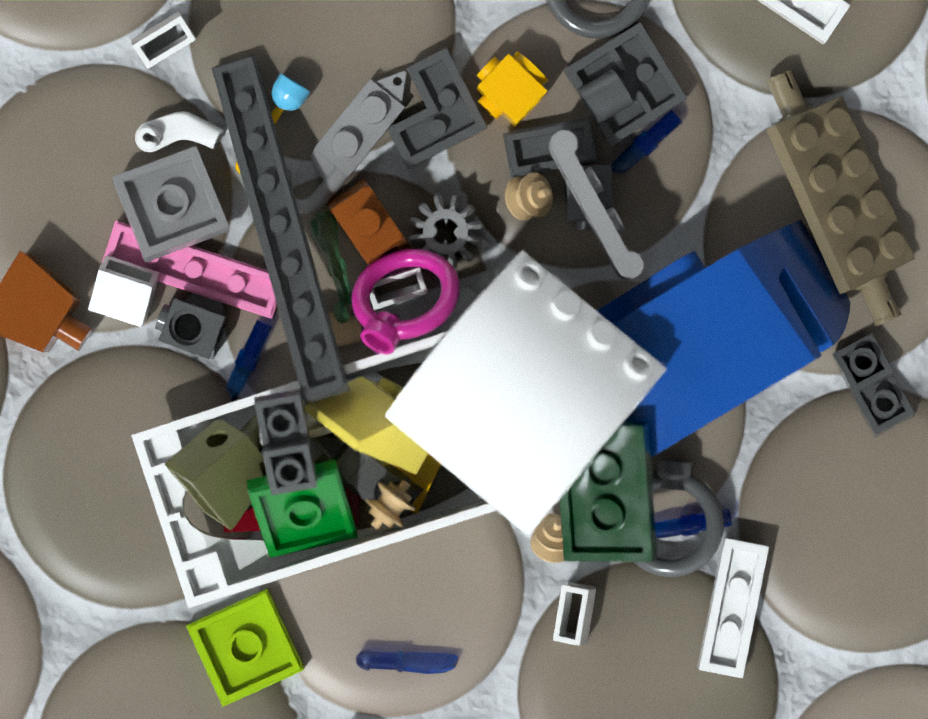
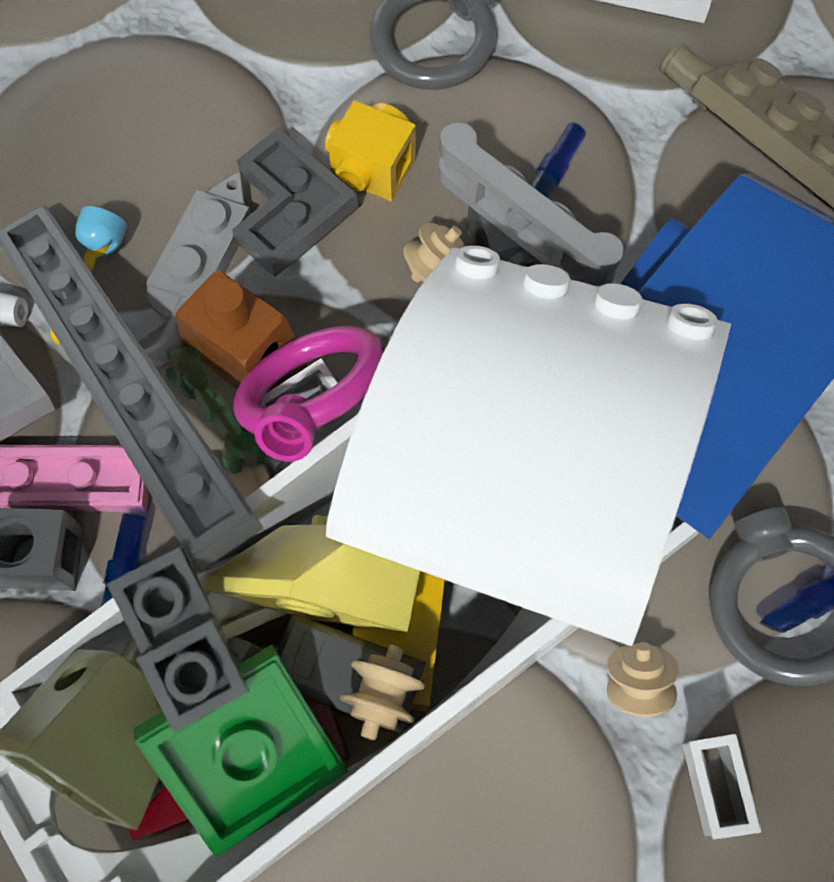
camera: 25 degrees left, 20 degrees down
(460, 232) = (343, 306): light grey gear -> none
(529, 148) = (423, 204): dark grey tile -> none
(611, 503) = (727, 575): dark green plate -> none
(625, 84) = (508, 106): dark grey plate -> none

